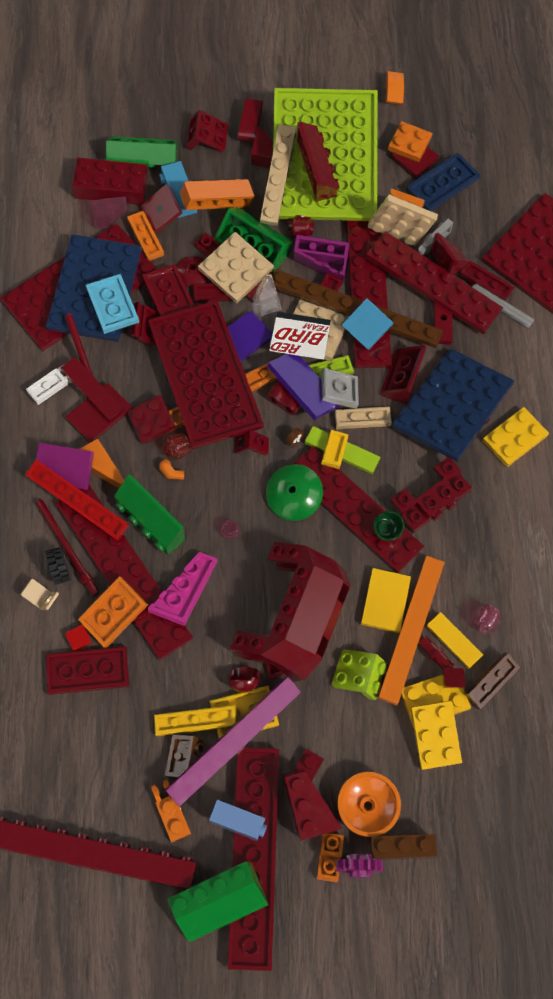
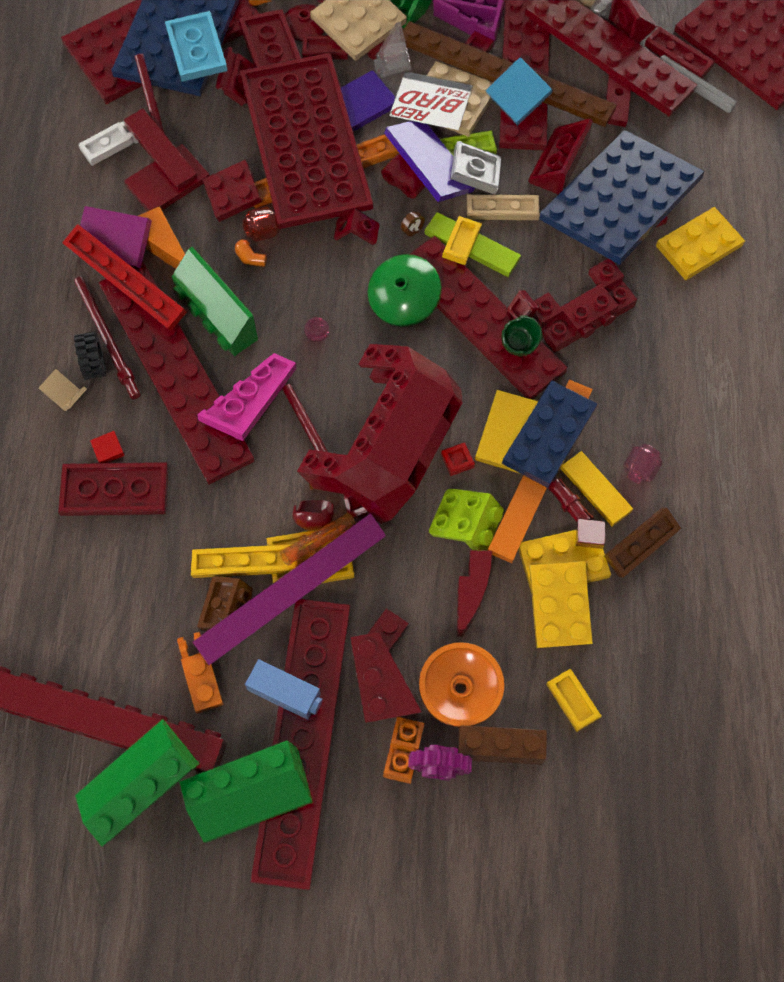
camera: 10 degrees right, 0 degrees up
(113, 612) = (153, 417): orange plate -> none
(133, 902) = (134, 782): none -> green slope
(229, 605) = (303, 418): none -> dark red bar
(233, 713) = (293, 553): none -> clear orange pin
(348, 625) = (457, 459): none -> red tile
(369, 728) = (472, 589): none -> dark red slope
(386, 501) = (522, 305): none -> dark red tile
(416, 601) = (549, 434): none -> dark blue plate
(452, 807) = (573, 700): none -> yellow tile

